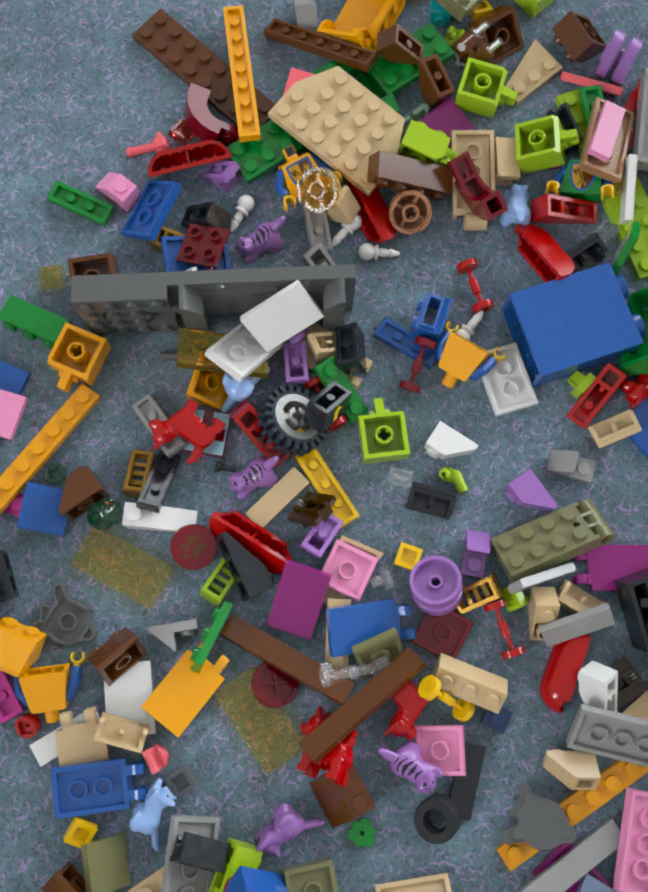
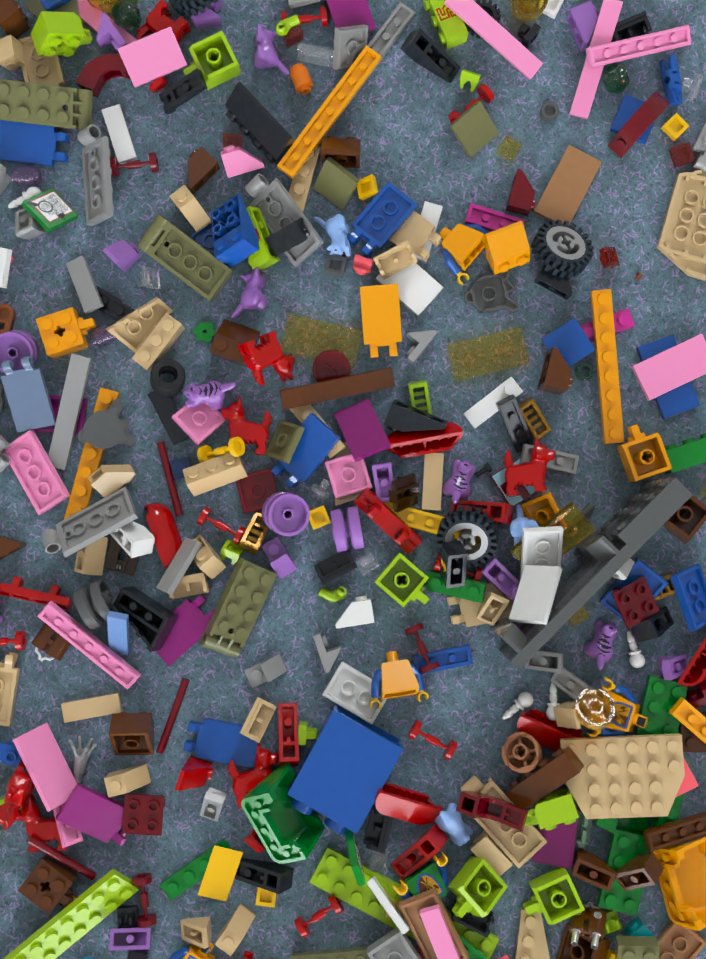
camera: 140 degrees right, 10 degrees up
(27, 725) = (454, 215): red tile -> none
(104, 514) = (529, 374): clear green head -> none
(117, 655) = (440, 298): reddish brown slope -> none
(193, 546) = (456, 404): dark red tile -> none
(209, 636) = (395, 359): green plate -> none
(328, 674) = (303, 399): clear piece -> none
(349, 498) = (387, 520): none -> red hinge
(350, 348) = (474, 619): black hinge -> none
(361, 705) = (267, 401): reddish brown tile -> none
(393, 522) = (346, 529): none -> medium lavender wheel
(417, 863) = (158, 342): none -> tan brick
(427, 331) = (434, 676): blue window -> none
(467, 330) = (411, 702): white bar -> none
(505, 430) = (327, 656): none -> light grey slope
(515, 718) = (169, 478): none -> dark red bar
(530, 493) = (278, 627): medium lavender slope -> none
(541, 577) = (224, 577): tile -> none

